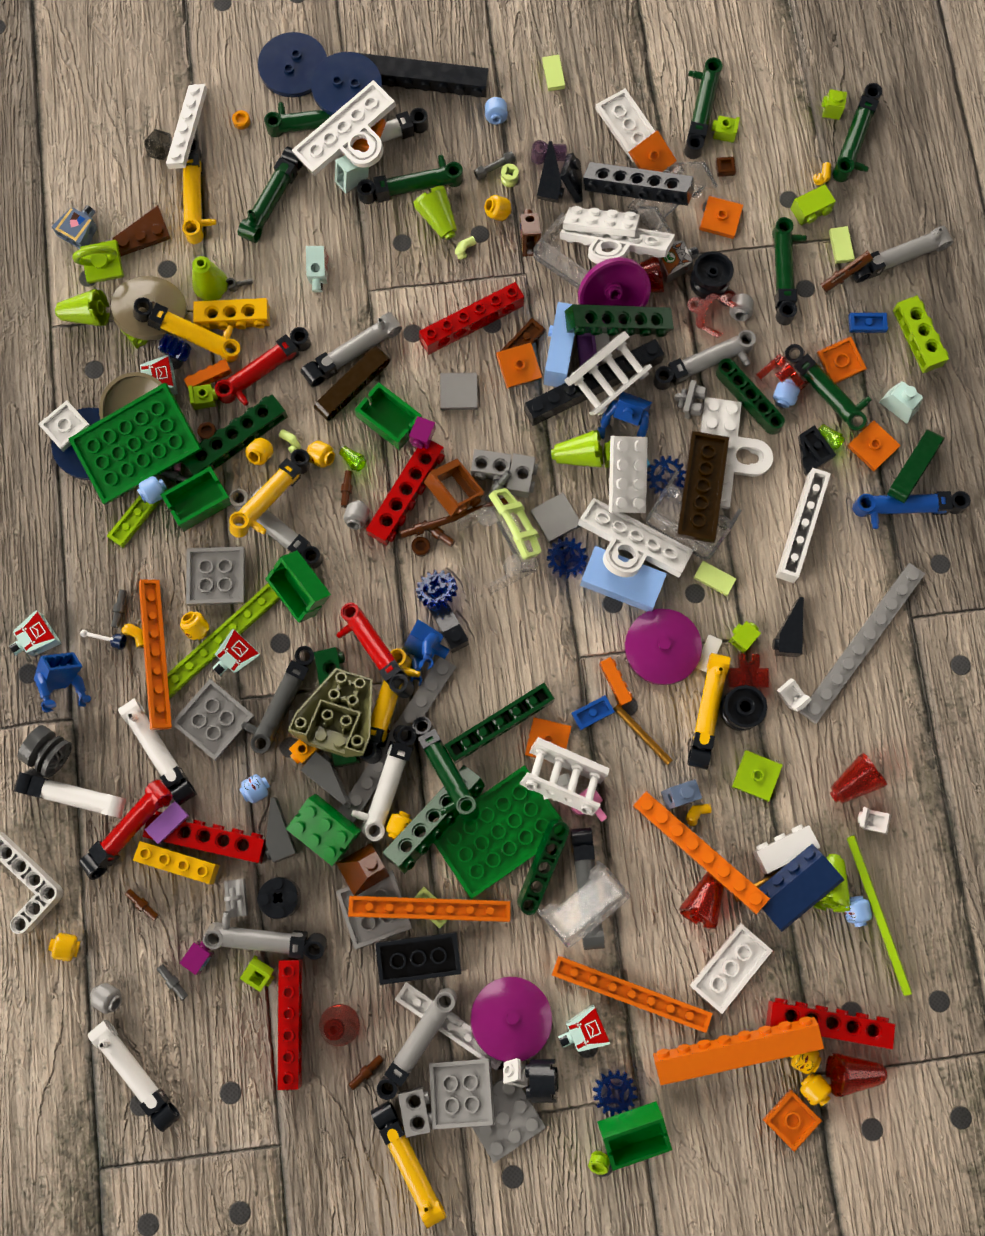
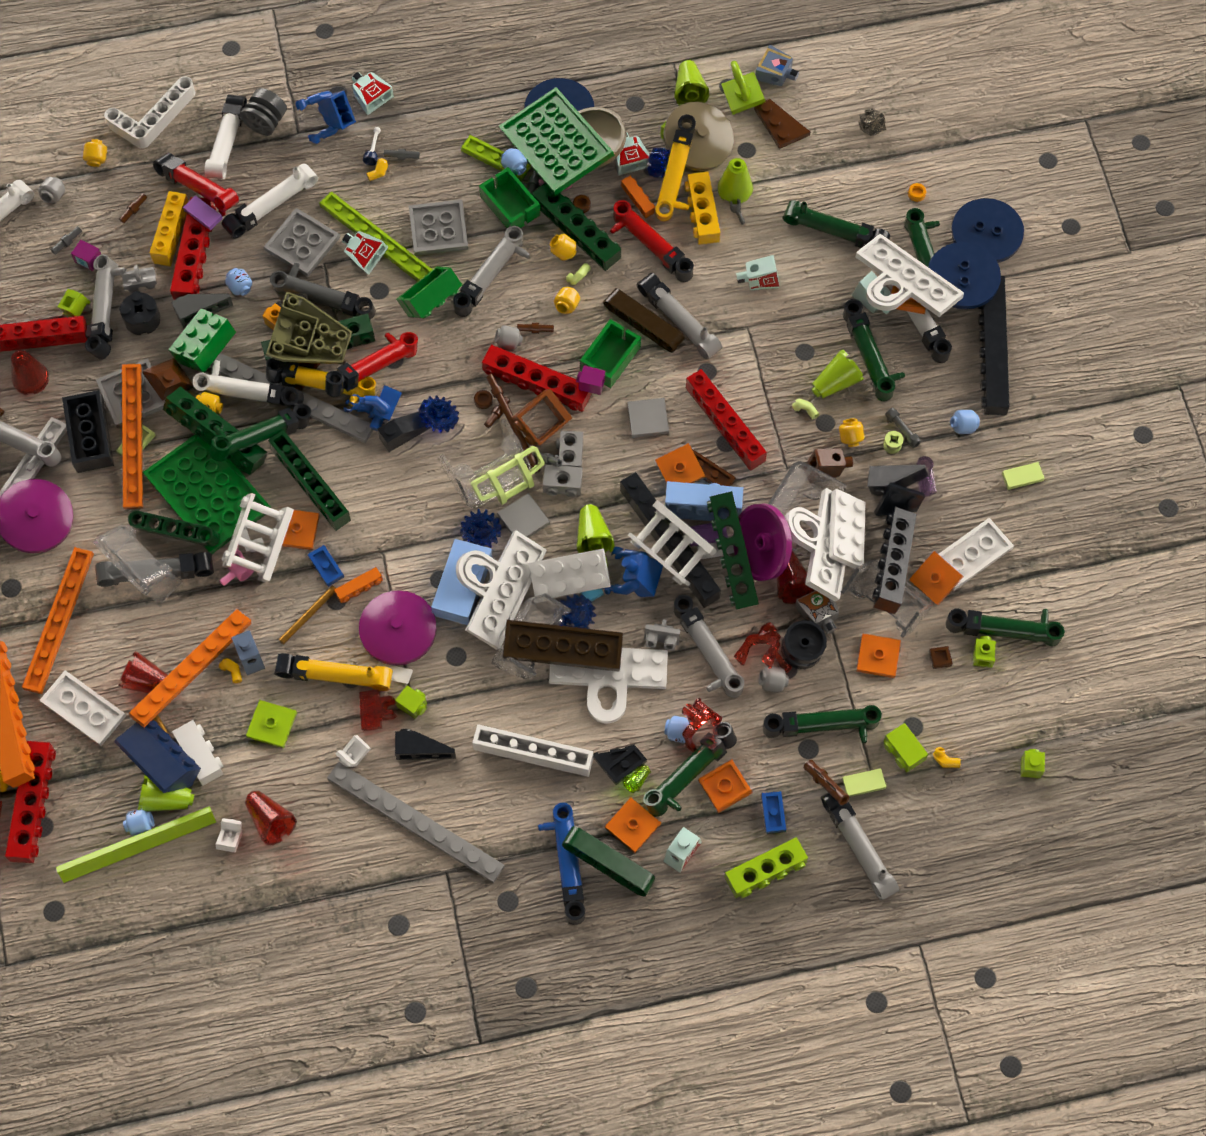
camera: 85 degrees right, 10 degrees down
(63, 424) = (572, 83): white plate -> none
(155, 655) = (358, 185): orange plate -> none
(186, 126) = (895, 142): white plate -> none
(192, 197) = (856, 154): yellow piece -> none
(194, 625) = (387, 214): yellow head -> none
(205, 401) = (614, 192): lime brick -> none
(288, 474) = (518, 256): yellow piece -> none
(325, 775) = (248, 339): dark grey slope -> none
(354, 459) = (565, 330): clear neon green cone -> none
(585, 1031) = (23, 581): torso -> none
(714, 578) = (472, 672): yellowish green tile -> none
(750, 405) = (668, 701): dark green beam -> none
(754, 704) = (336, 691): black wheel -> none
(857, 133) = (1031, 799): dark green piece -> none

